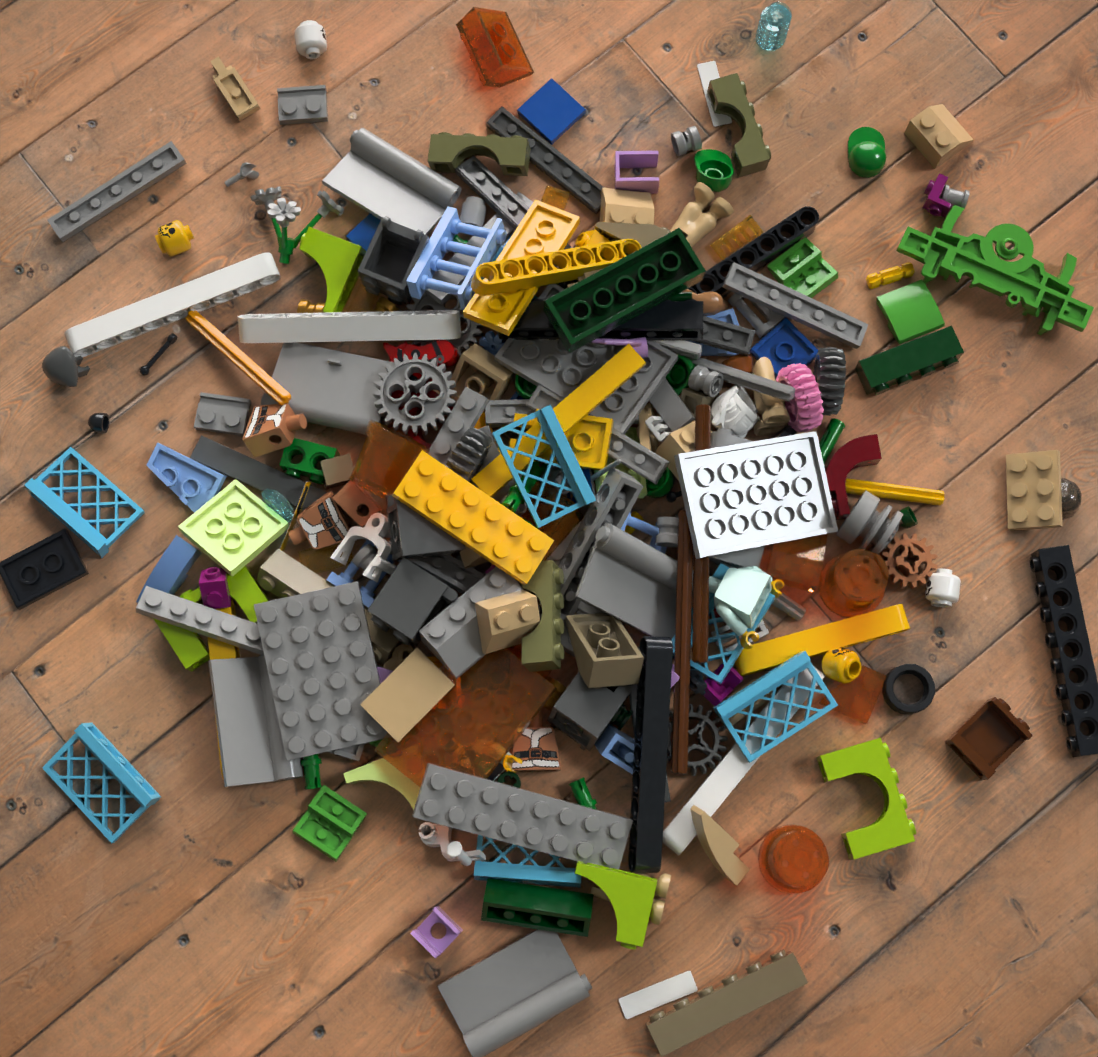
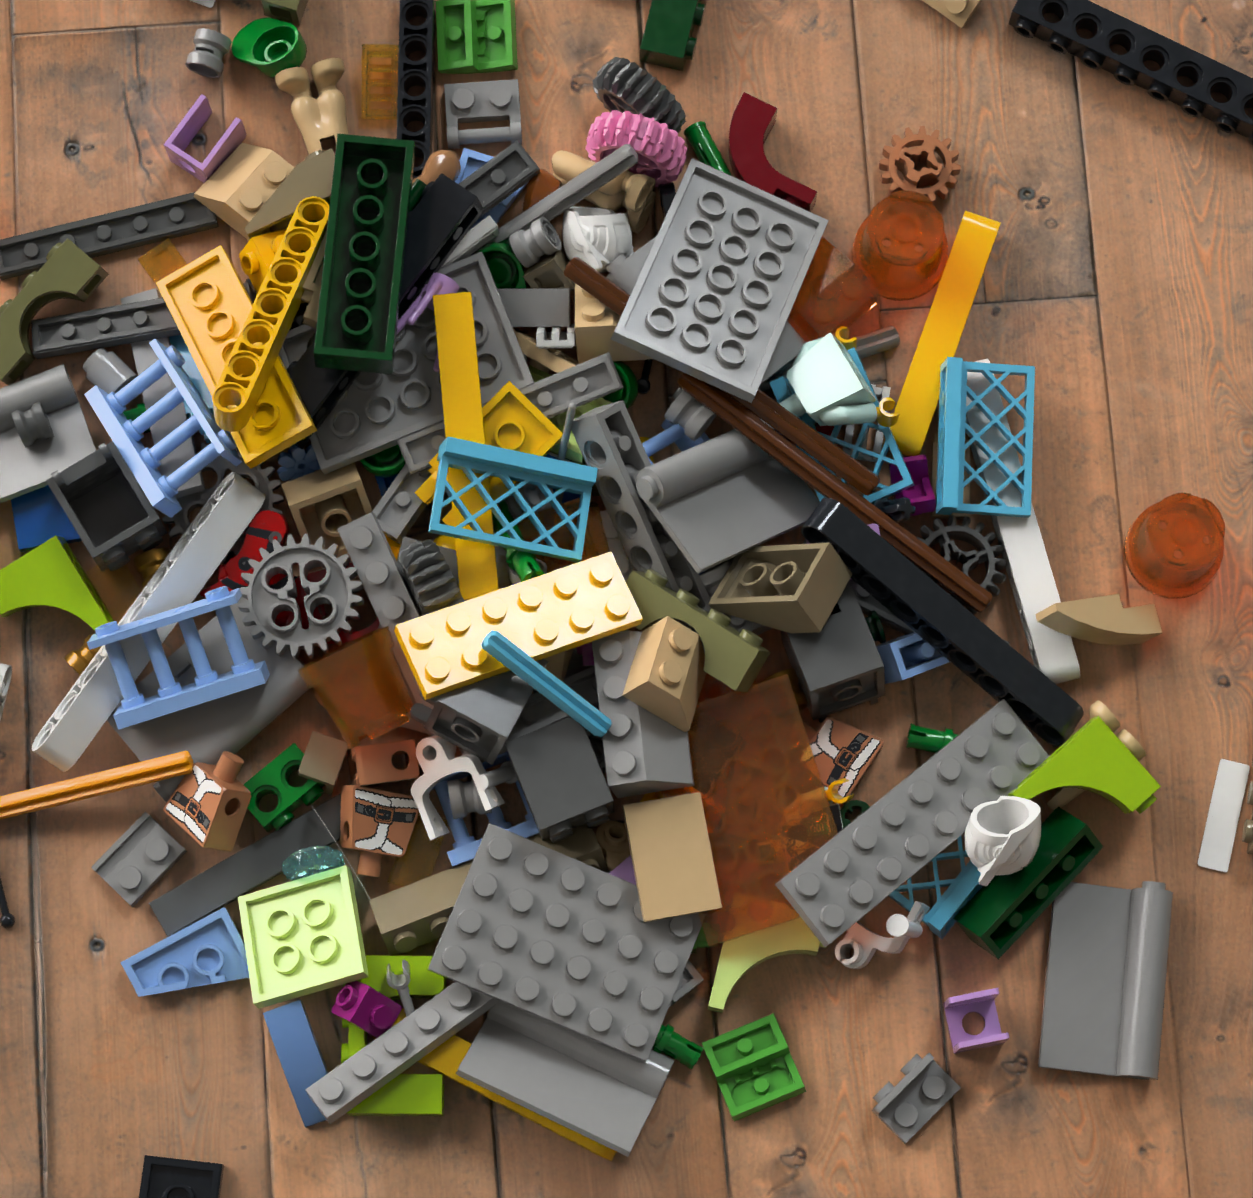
camera: 55 degrees left, 0 degrees up
(73, 520) = (126, 1140): medium azure fence -> none
(99, 422) = (35, 1022): black hinge -> none
(241, 595) = (401, 983): none -> light grey hand
(313, 365) = (171, 695): none -> light blue fence
(373, 926) = (915, 1097): none -> light grey bracket
(414, 193) = (32, 424): none -> dark grey wheel
(448, 555) = (546, 683): none -> medium azure axle
(548, 874) = (1003, 836): none -> white helmet
(551, 111) = (43, 187): blue tile -> none
(784, 347) = (557, 122): blue tile -> none
(795, 305) = (516, 73): light grey plate -> none
(841, 665) = (988, 331): yellow head -> none
(858, 696) = (1034, 337): clear orange wing -> none
(870, 524) = (853, 176): light grey wheel -> none
(892, 826) = (1213, 405): lime arch -> none
(895, 492) = (825, 122): yellow axle -> none
(908, 518) = (867, 131): dark green hinge -> none
(923, 675) = (1075, 248): black tyre -> none
(943, 588) = (979, 151): white head -> none
(989, 737) = (1188, 226): reddish brown panel -> none

